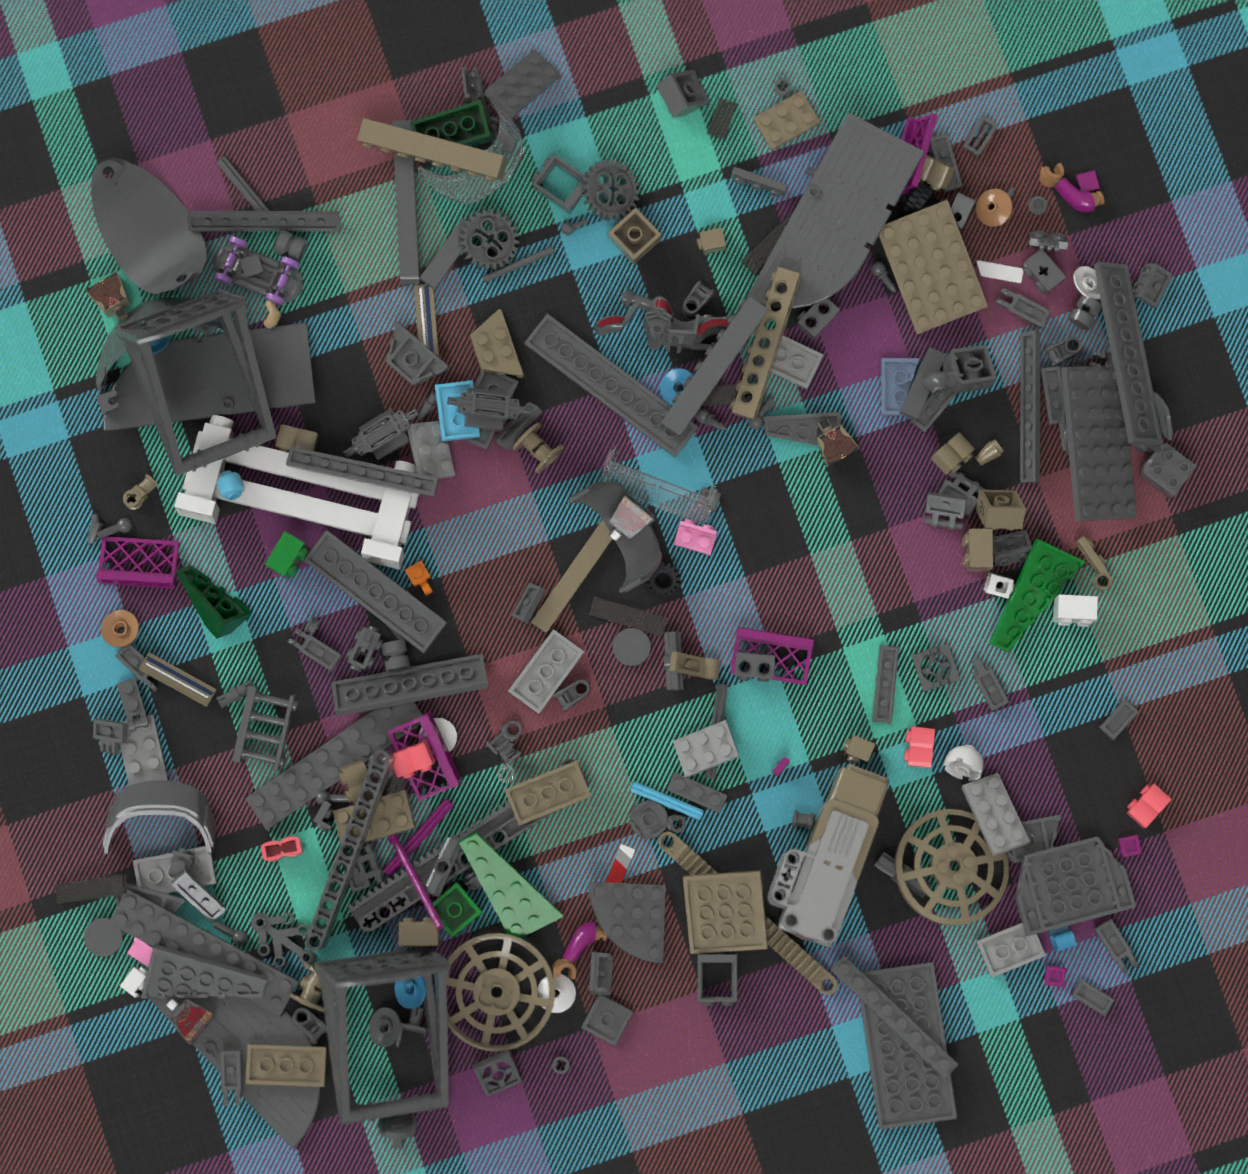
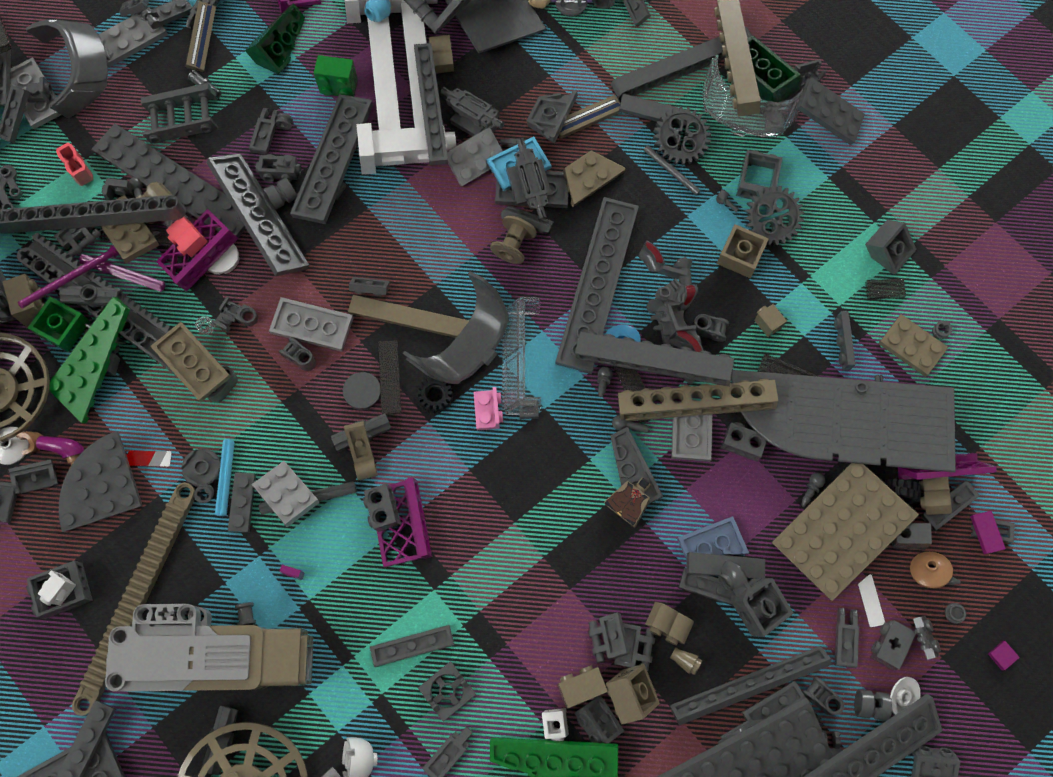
camera: 65 degrees right, 10 degrees down
(419, 575) = (360, 190): orange plate -> none
(629, 518) = (479, 338): torso -> none
(720, 974) = (56, 589): none -> white brick
(725, 912) = (125, 572): dark tan plate -> none
(858, 749) = (331, 641): dark tan brick -> none
(920, 747) = (358, 706): coral brick -> none
(981, 143) = (987, 532): none -> magenta tile
(1078, 199) = (982, 647): piece -> none

